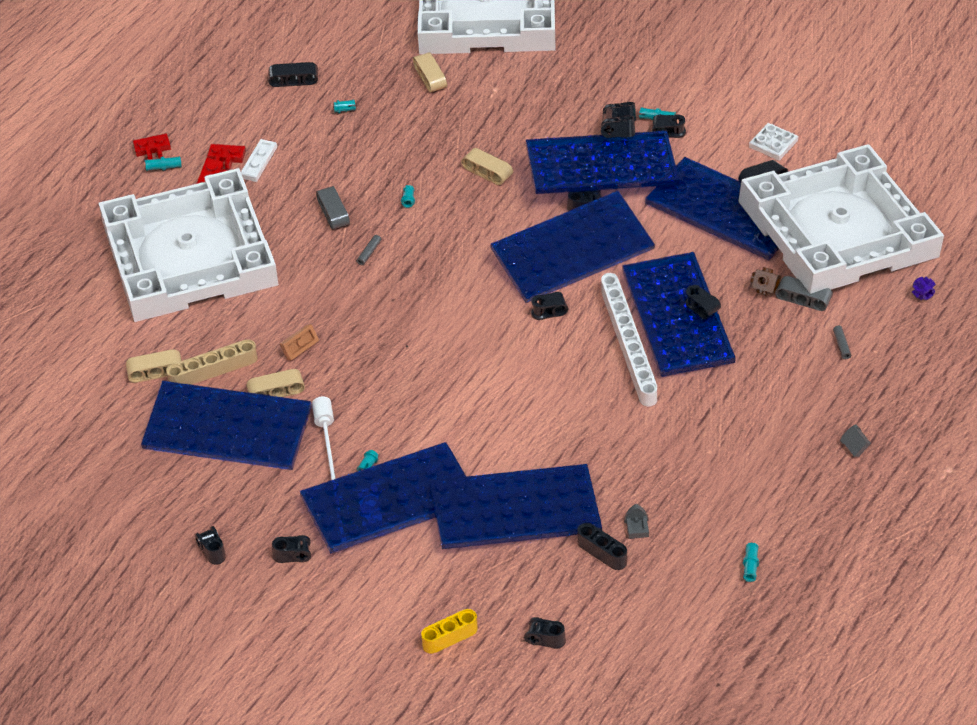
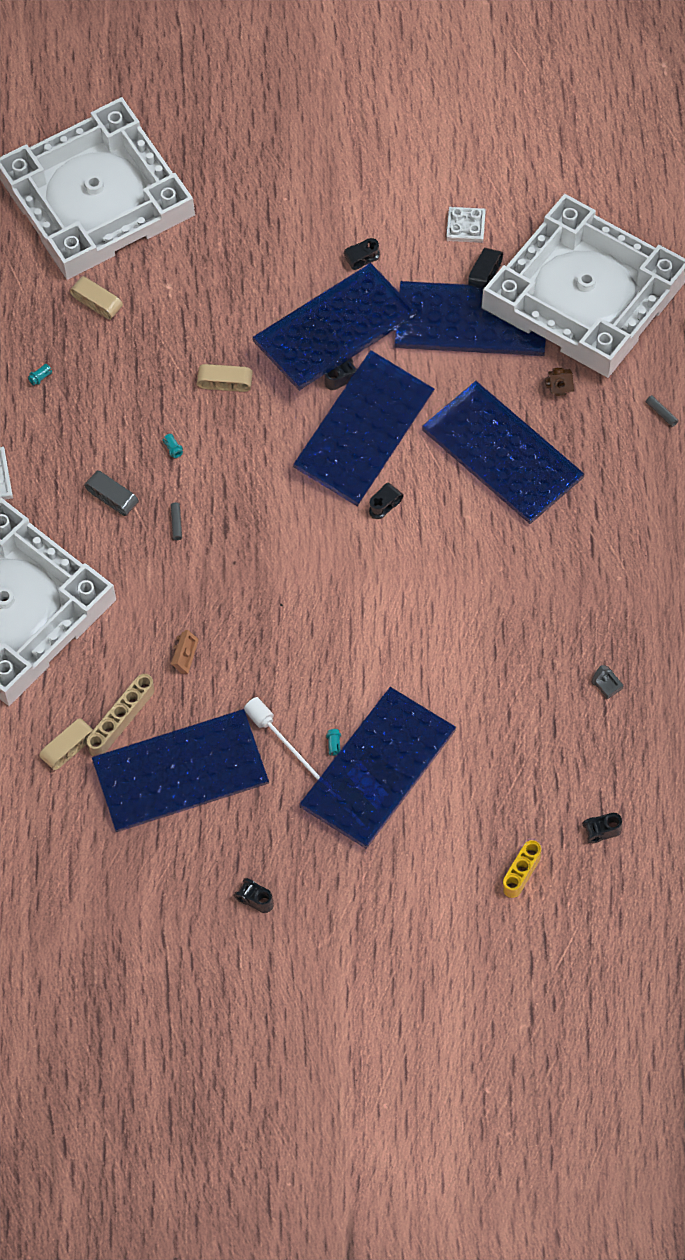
camera: 30 degrees left, 15 degrees up
(277, 384) = (195, 706): tan beam -> none
(290, 549) = (333, 860): black piece -> none
(513, 506) = (495, 720): clear blue plate -> none
(602, 546) = (602, 726): black beam -> none
(618, 120) = (310, 262): black piece -> none
(629, 339) = (481, 507): white beam -> none
(650, 113) = (341, 245): teal pin -> none
(701, 302) = (523, 433): black piece -> none
(793, 291) = (588, 378): dark grey beam -> none

